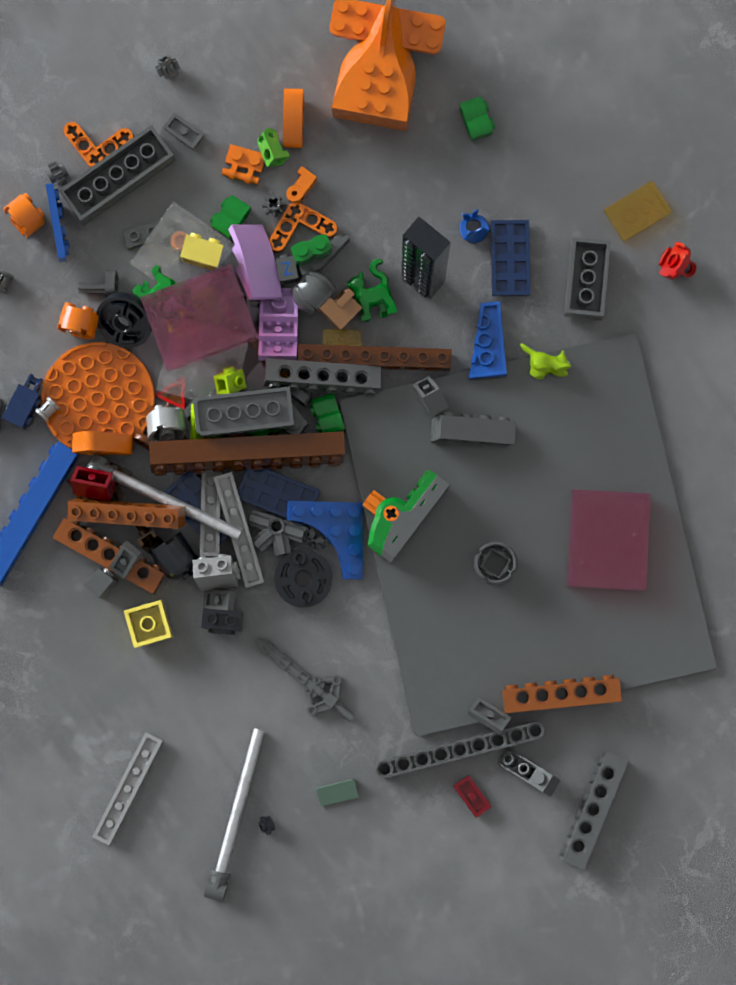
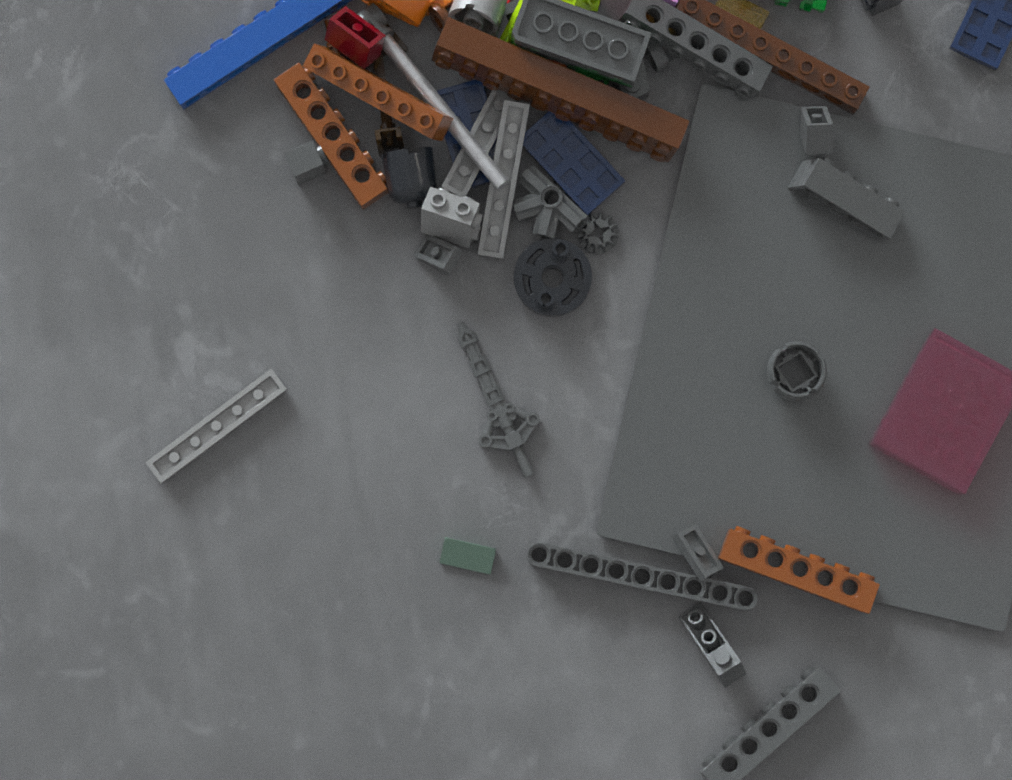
camera: 20 degrees right, 0 degrees up
(125, 560) = (349, 148): dark grey slope -> none
(148, 624) = (338, 240): light yellow brick -> none
(217, 885) = (267, 595): flat silver piece -> none
(222, 621) = (429, 280): black brick -> none
(266, 825) = (362, 552): black plate -> none
(327, 414) = (679, 91): green brick -> none
(340, 524) = (628, 235): blue plate -> none
(391, 535) = (687, 274): piece -> none
(472, 796) = (629, 640): dark red plate -> none
(489, 347) = (915, 109): blue wing -> none
(542, 363) = (973, 159): lime animal -> none

